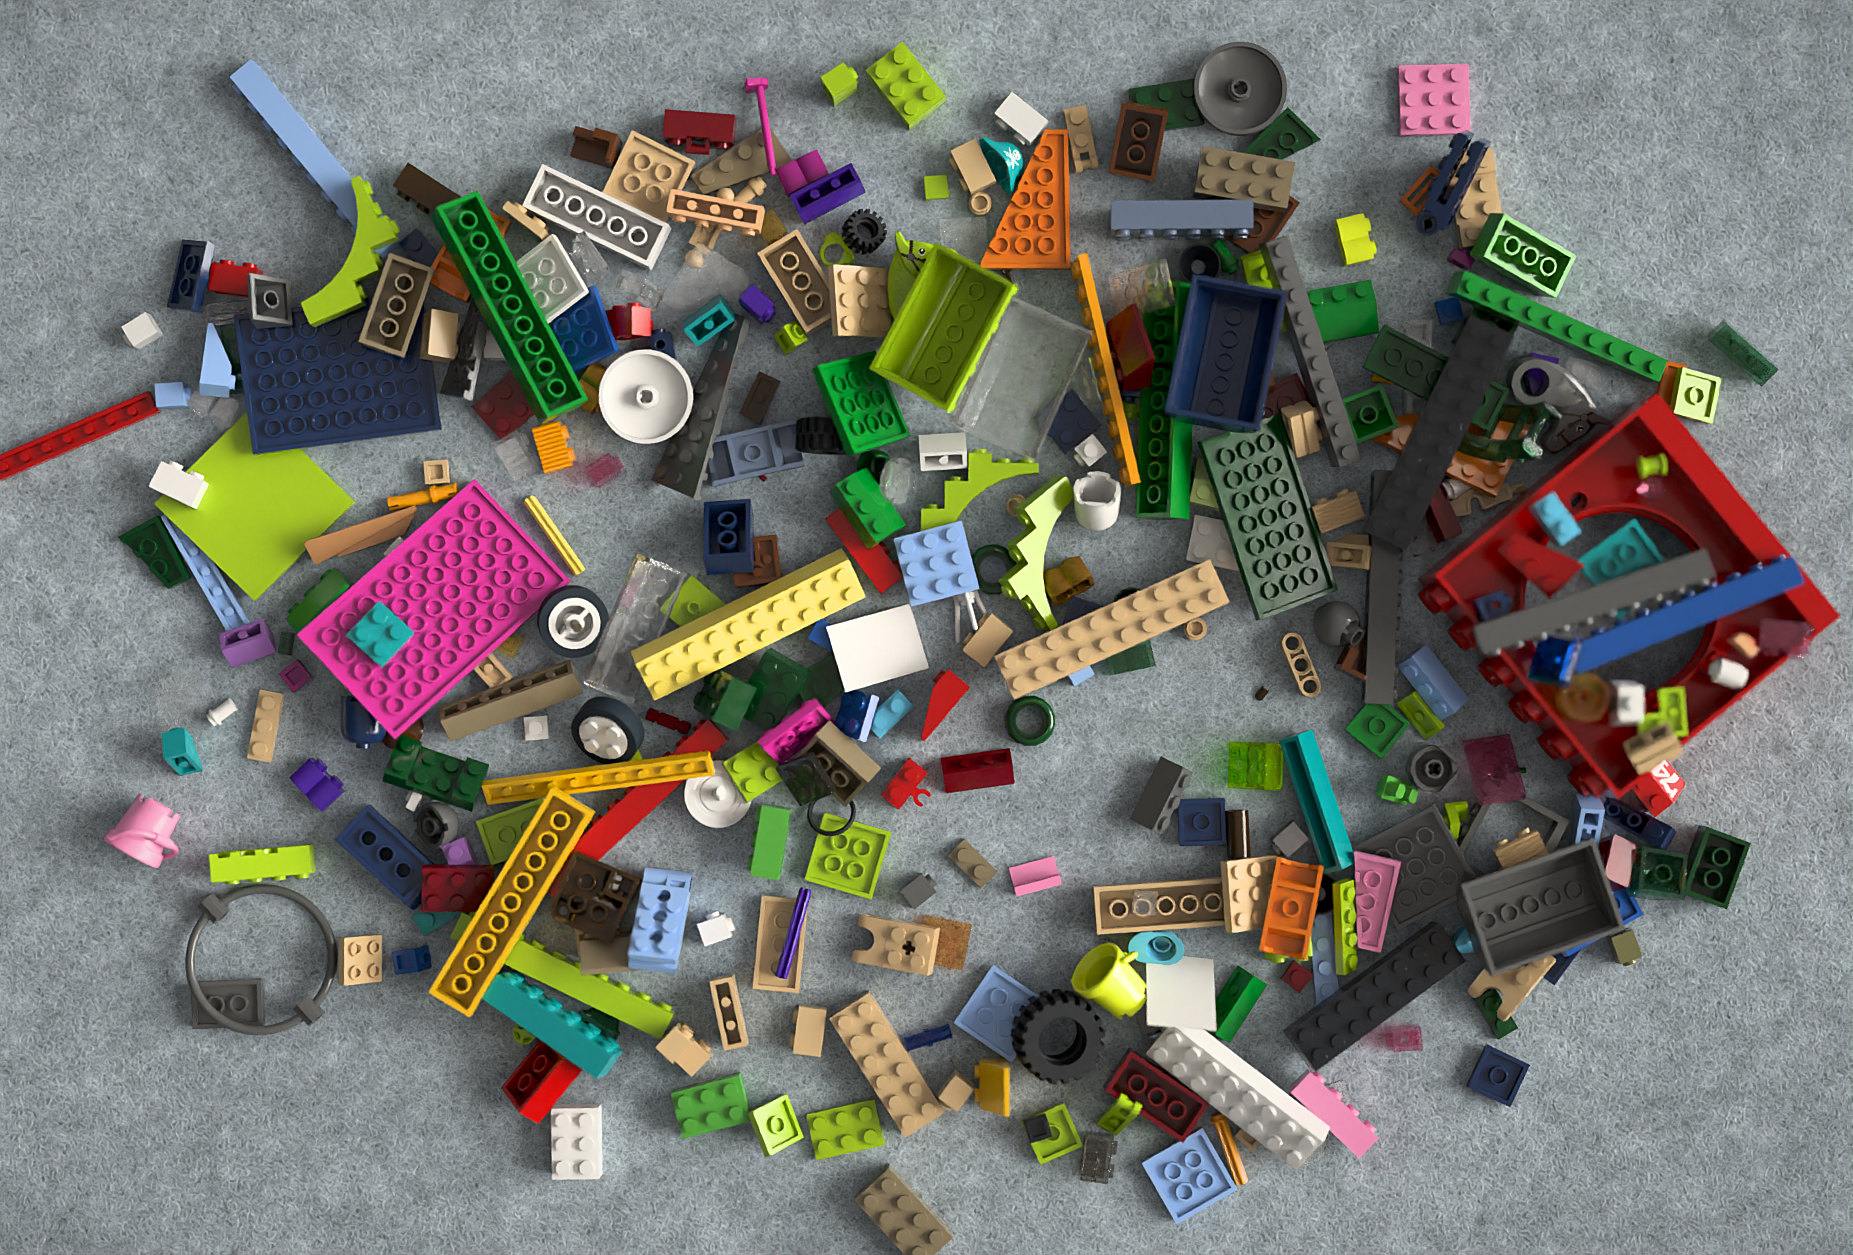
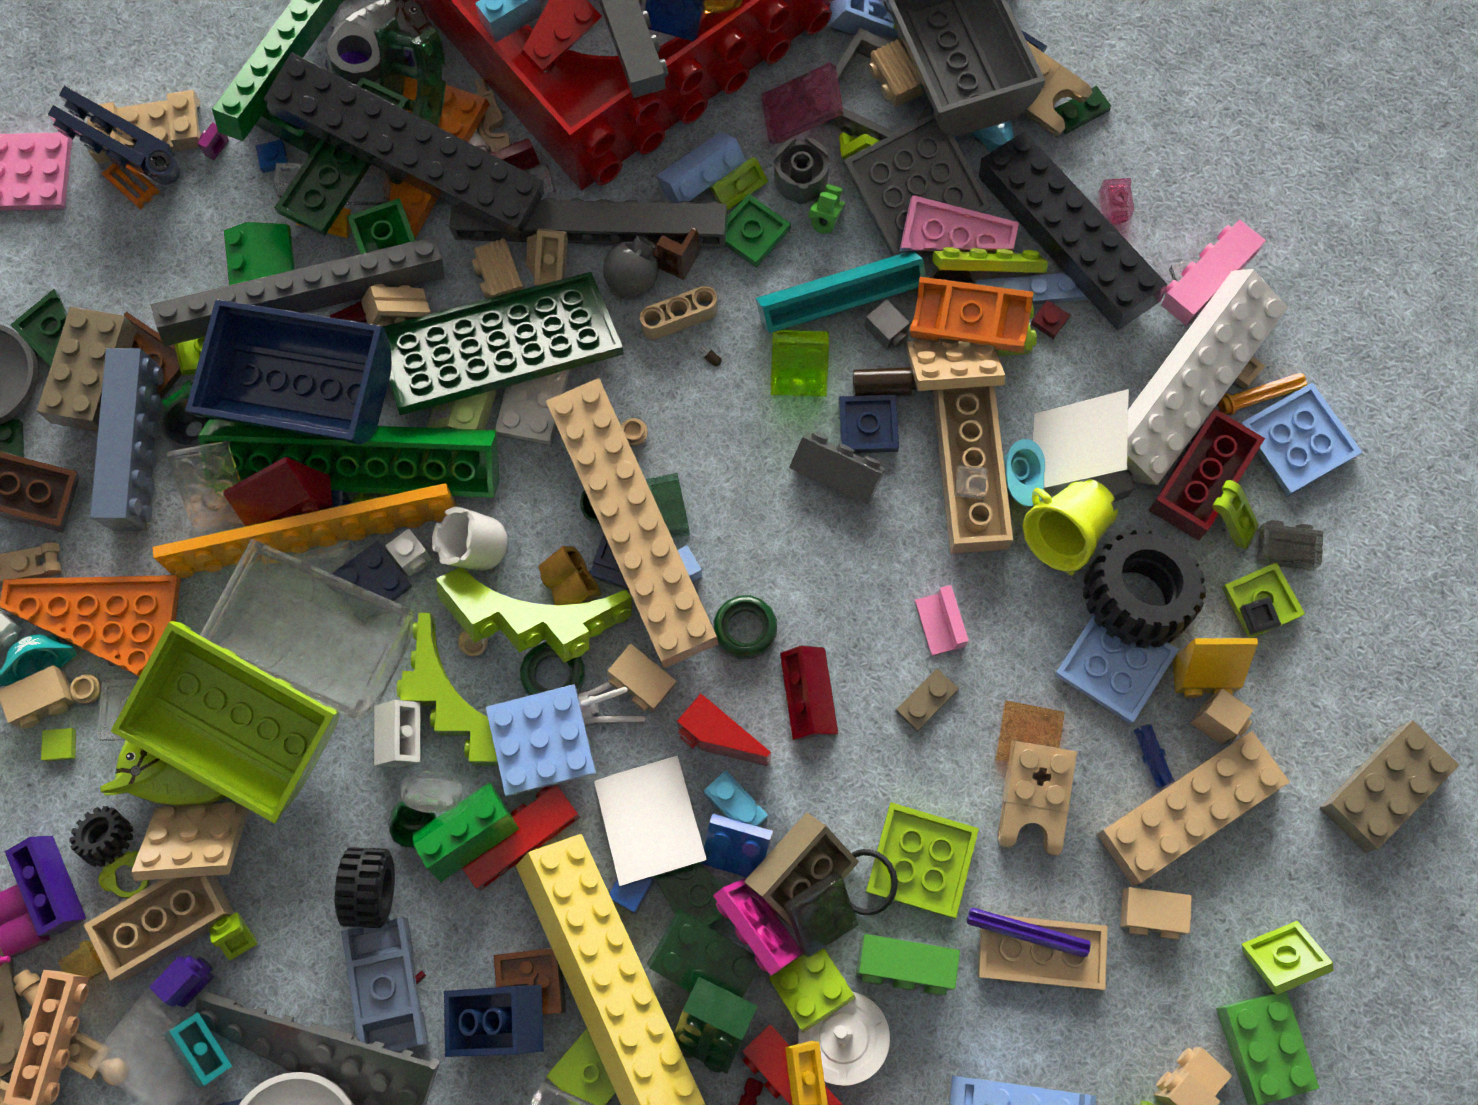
camera: 85 degrees left, 15 degrees down
(715, 928) = (1026, 1041): white brick -> none
(729, 1012) = (1139, 1022): tan brick -> none
(760, 397) = (311, 979): dark brown plate -> none
(845, 1129) = (1281, 865): lime plate -> none
(860, 403) = (322, 838): green plate -> none
(906, 784) = (828, 782): red brick -> none
(919, 890) = (964, 766): dark grey brick -> none
(1236, 1002) = (1077, 382): green panel -> none
(1354, 239) = (177, 253): neon yellow brick -> none
(1483, 606) = (608, 74): dark blue brick -> none
(1498, 1075) = (1152, 106): dark blue plate -> none
(1522, 255) = (204, 69): bright green brick -> none

